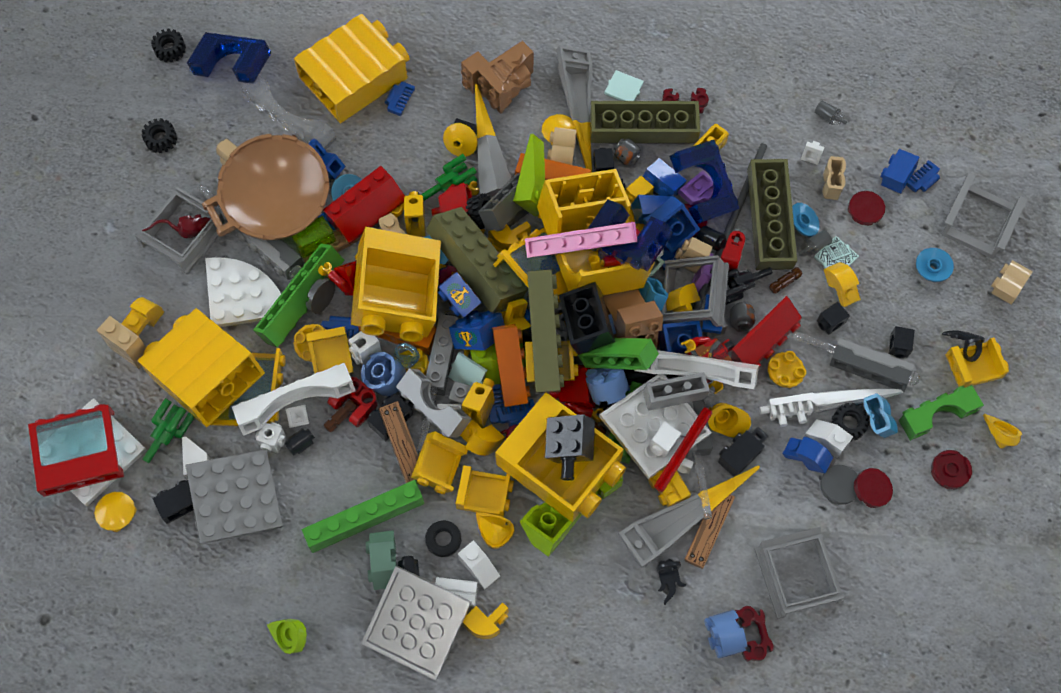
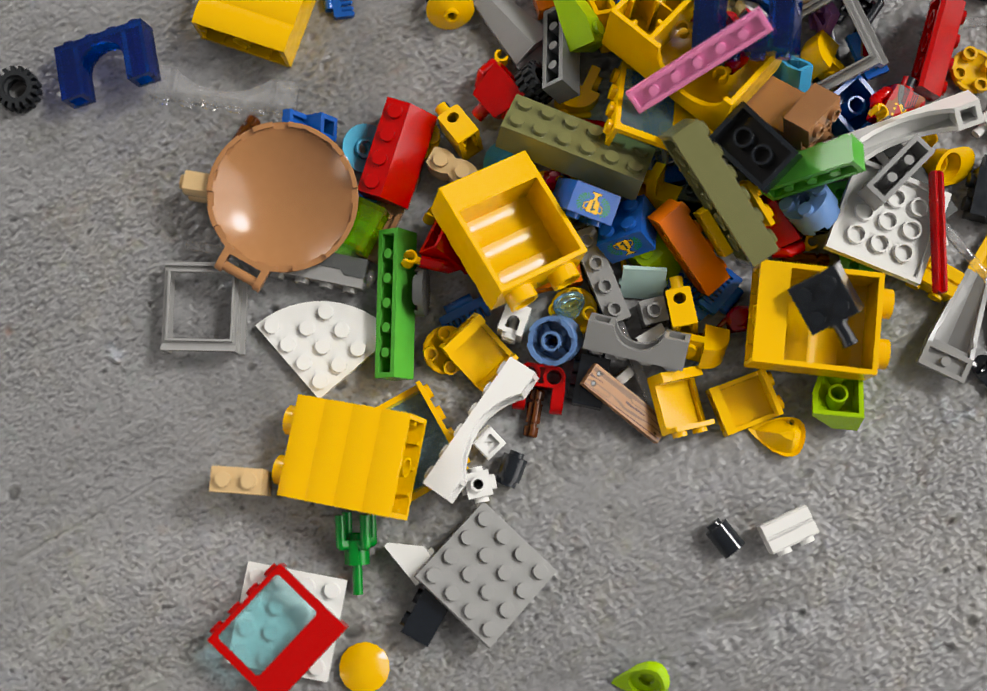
camera: 30 degrees left, 15 degrees up
(142, 313) = (235, 435): yellow brick -> none
(156, 127) = (81, 199): black tyre -> none
(187, 226) = (209, 300): dark red animal -> none
(363, 516) = (637, 508): bright green brick -> none
(382, 558) = (685, 534): sand green brick -> none
(414, 426) = (624, 375): none -> white tile
(416, 622) = (772, 586): light grey plate -> none
(440, 526) = (745, 468): black tyre -> none
(452, 176) = (469, 62): green plant -> none
(478, 564) = (790, 484): white slope -> none
(485, 627) = (838, 545): yellow brick -> none
(664, 440) = (915, 234): white brick -> none
(742, 316) = (893, 37): dark grey head -> none

